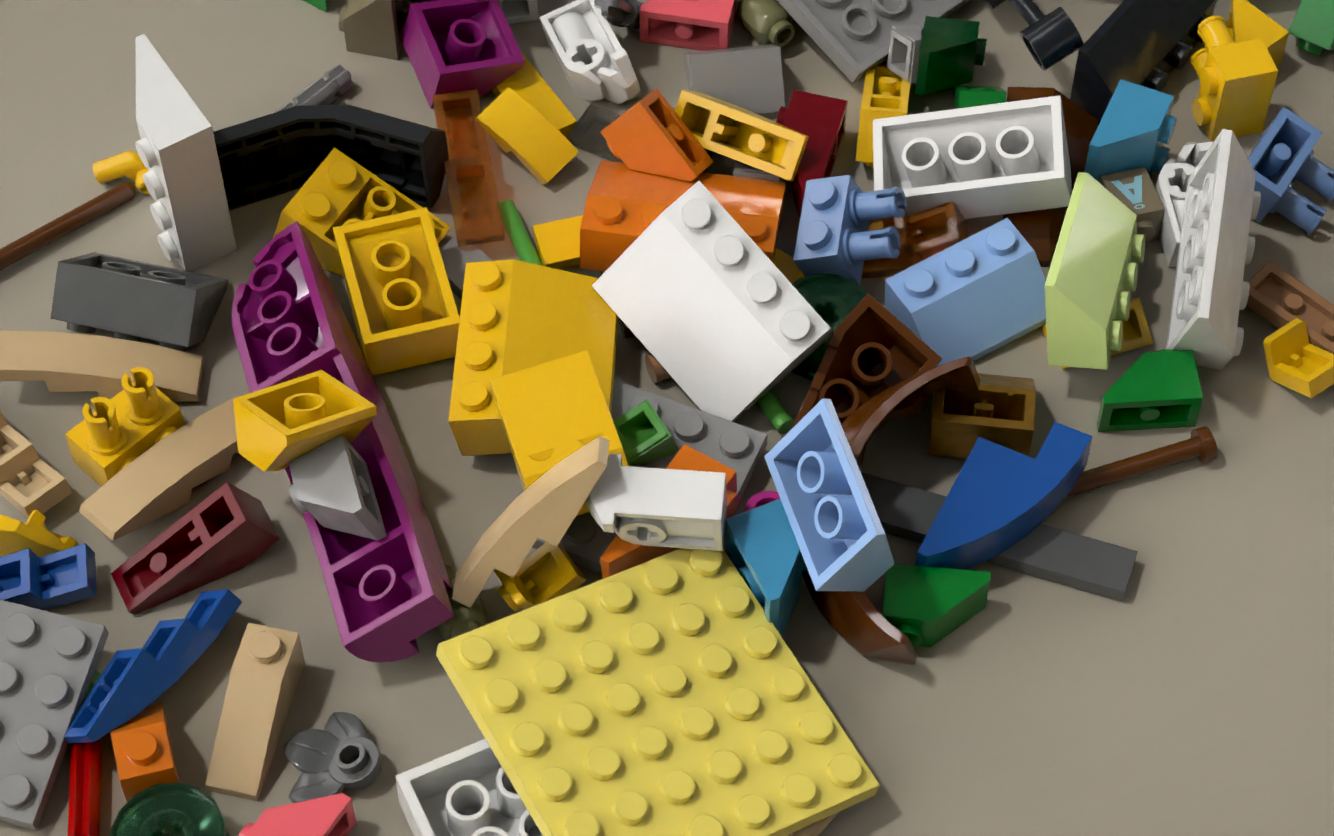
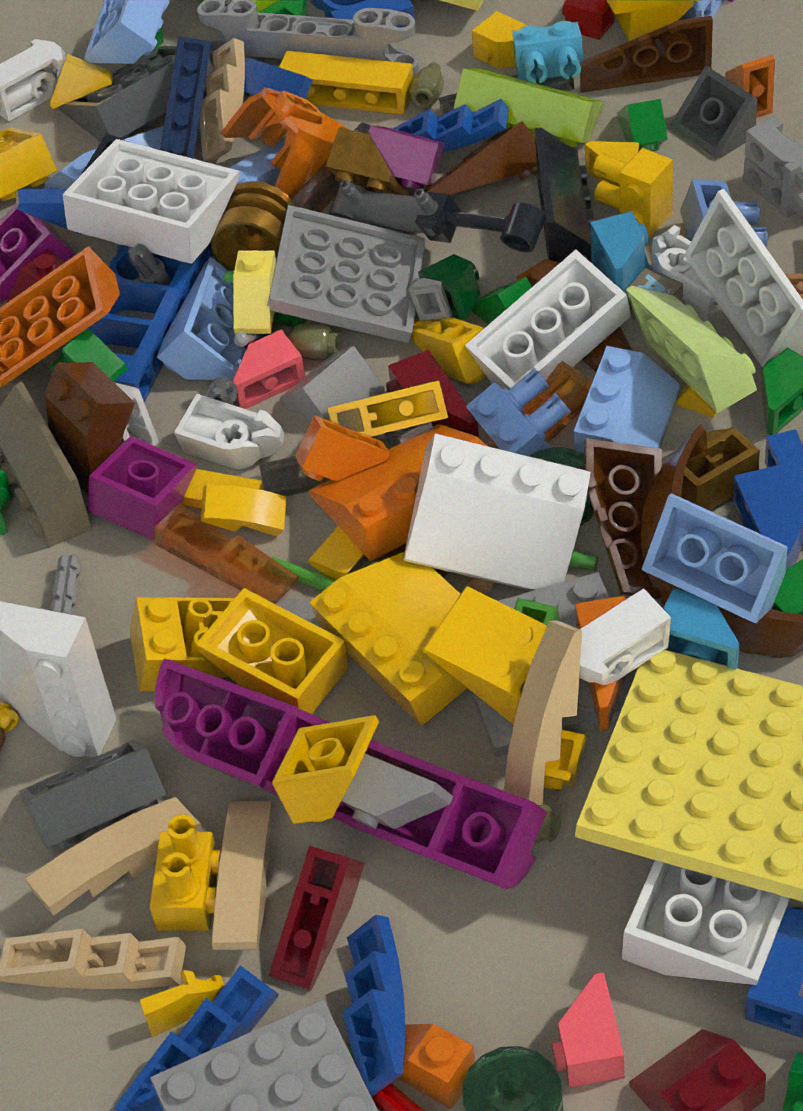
camera: 35 degrees left, 5 degrees down
(255, 710) = (470, 977): tan slope -> none
(287, 147) = (111, 598): black piece -> none
(328, 755) = (546, 972): dark grey plate -> none

